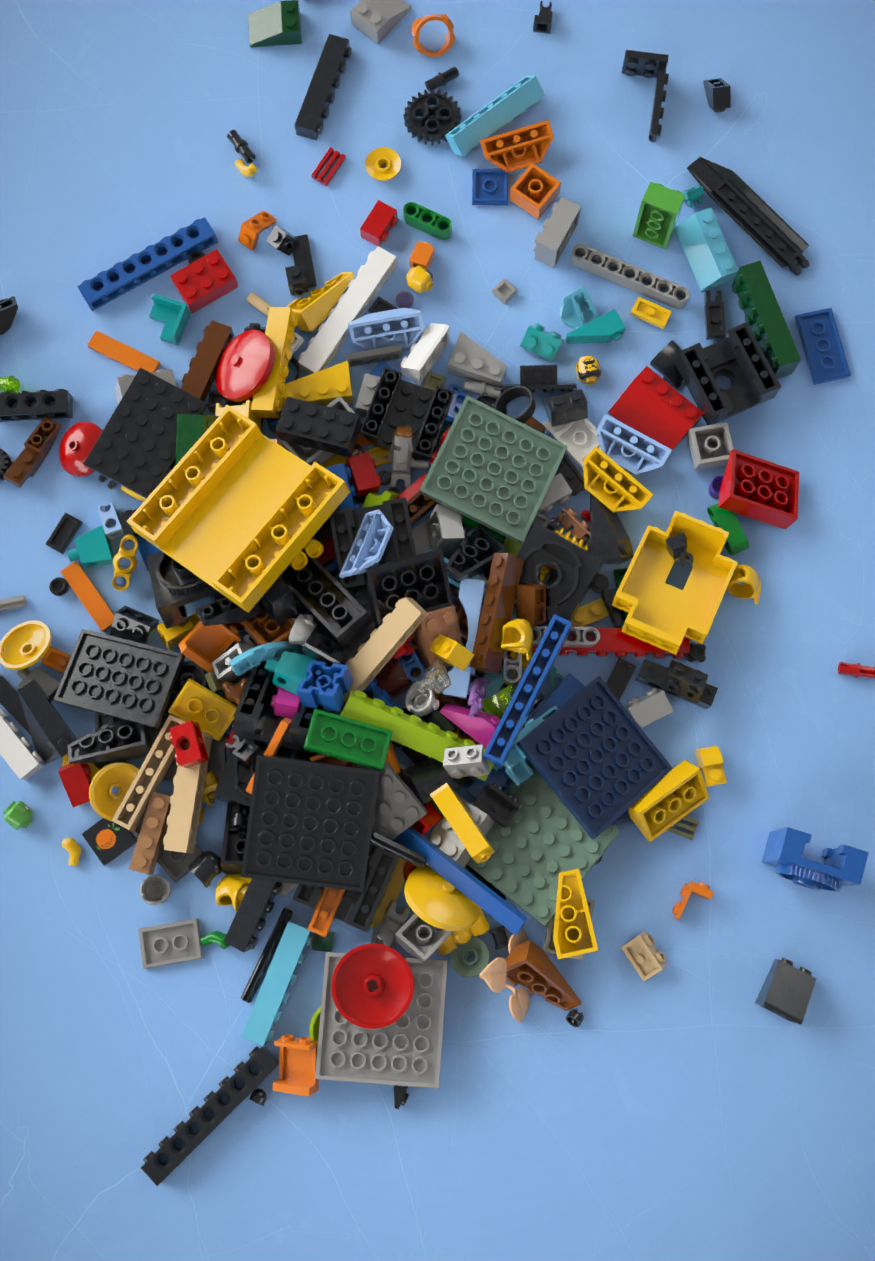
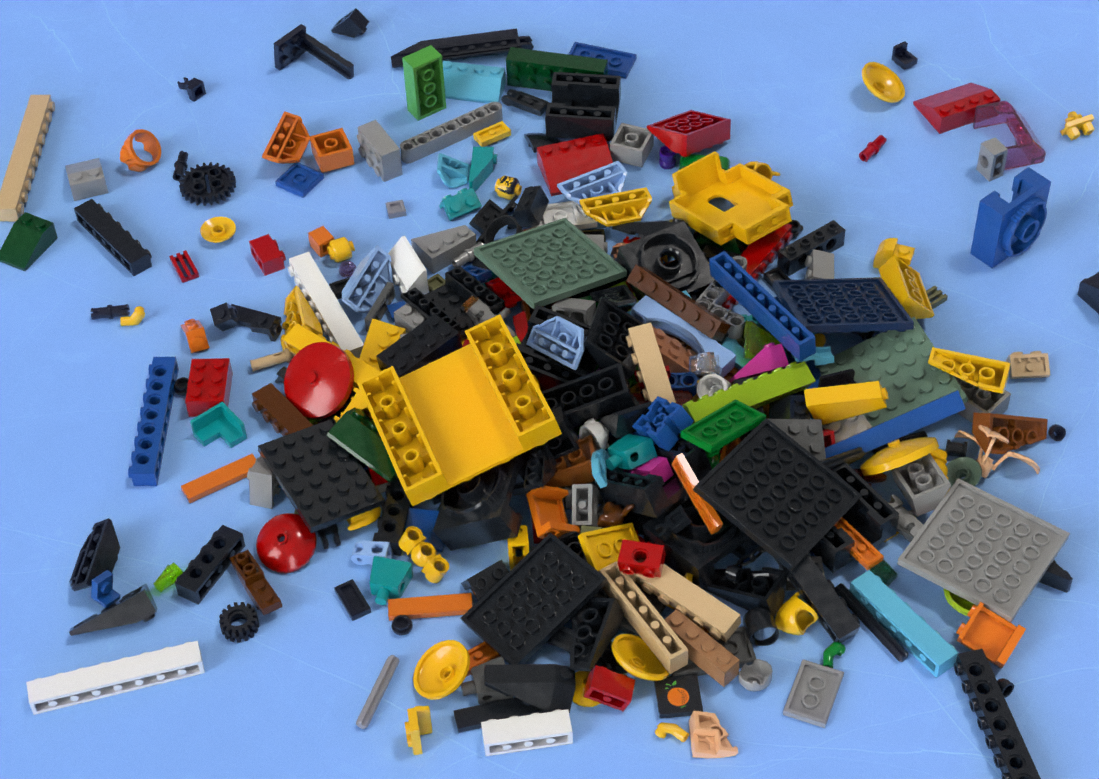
camera: 60 degrees left, 30 degrees down
(18, 815) = (605, 756): bright green head -> none
(82, 884) = (708, 737): none -> light nougat slope
(372, 986) = (951, 528): red dish -> none
(422, 214) = (294, 224): green beam -> none
(451, 652) = (692, 338): yellow brick -> none
(465, 761) = (794, 370): light grey bracket -> none
(477, 693) = (738, 348): medium lavender piece -> none
(495, 115) = (245, 146): medium azure brick -> none
(518, 637) = (711, 294): yellow piece -> none
(532, 603) = (685, 281): reddish brown hinge -> none
(677, 547) = (700, 192): black piece -> none
(684, 681) = (816, 232): black bracket -> none
(700, 889) = (991, 315): orange bracket -> none

